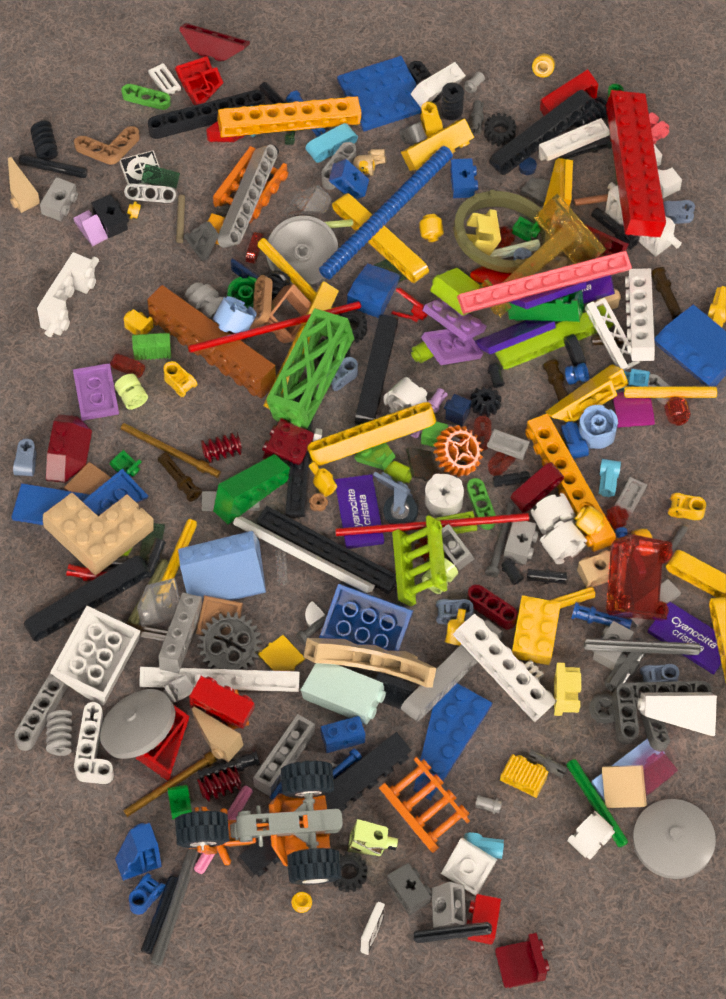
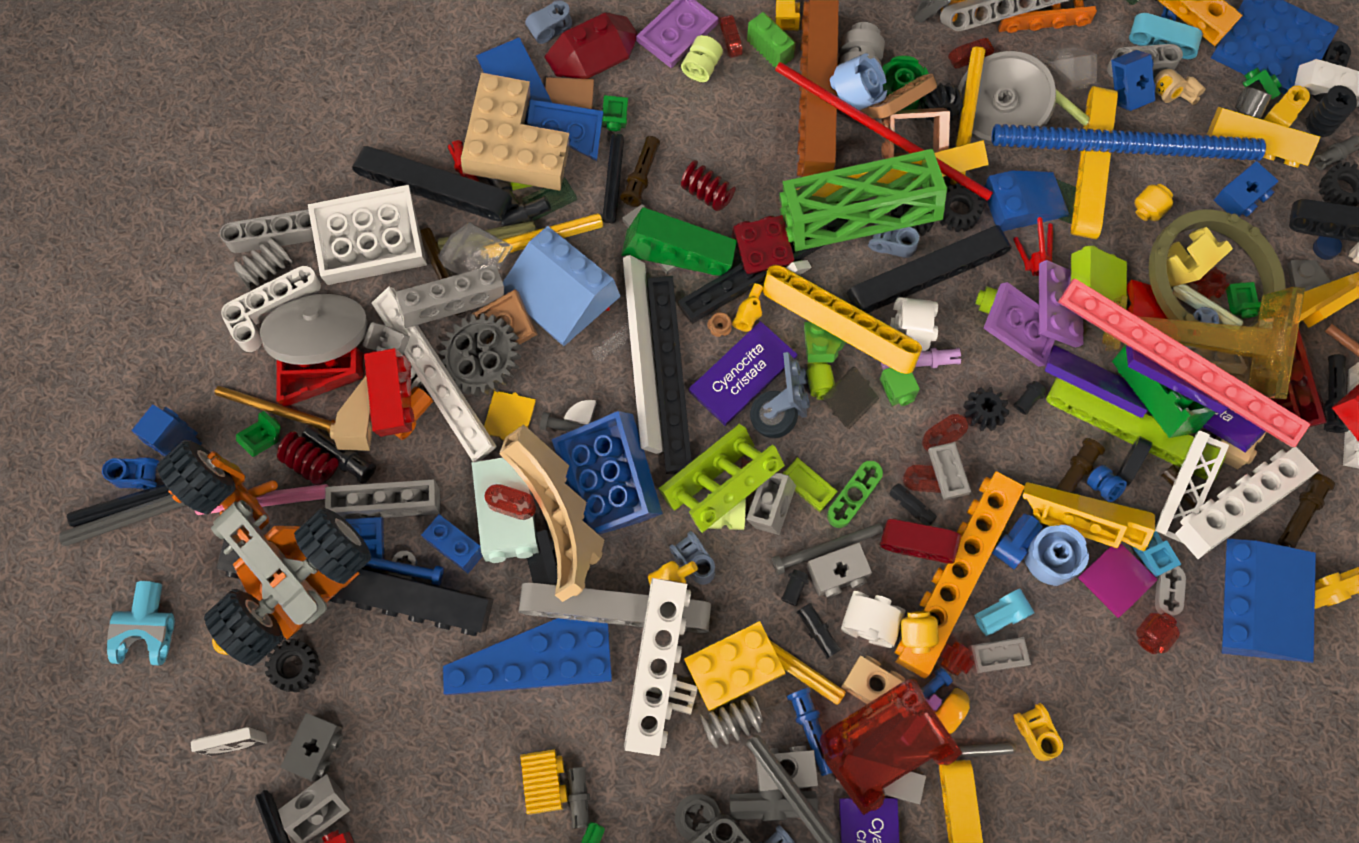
camera: 55 degrees right, 10 degrees up
(169, 496) = (613, 178): none -> black axle
(181, 380) = (754, 93): yellow piece -> none
(201, 466) = (672, 182): pearl gold bar -> none
(242, 270) = (936, 62): dark blue slope -> none
(253, 943) = (141, 623): none -> medium azure connector
(345, 680) = (512, 496): none -> clear red beam
(370, 839) = (333, 655): yellowish green torso -> none
(405, 808) = (398, 693): orange fence -> none
(408, 116) = (1269, 83): none -> green bracket
(420, 525) = (789, 469): red piece -> none
(444, 495) = (834, 433): white brick -> none
(457, 409) = (950, 386): dark blue brick -> none
(464, 450) = (906, 421): orange gear -> none
(469, 866) = (381, 798): white tile -> none
(487, 599) = (731, 583): dark red beam -> none
(488, 804) = (480, 765): light grey pin -> none
(489, 845) = (416, 788): medium azure piece -> none
(551, 511) = (899, 583): white brick -> none
(565, 650) = (732, 722): none -> light grey piece
(566, 689) = (682, 755): light yellow panel -> none
(669, 392) = (1175, 608): yellow axle -> none

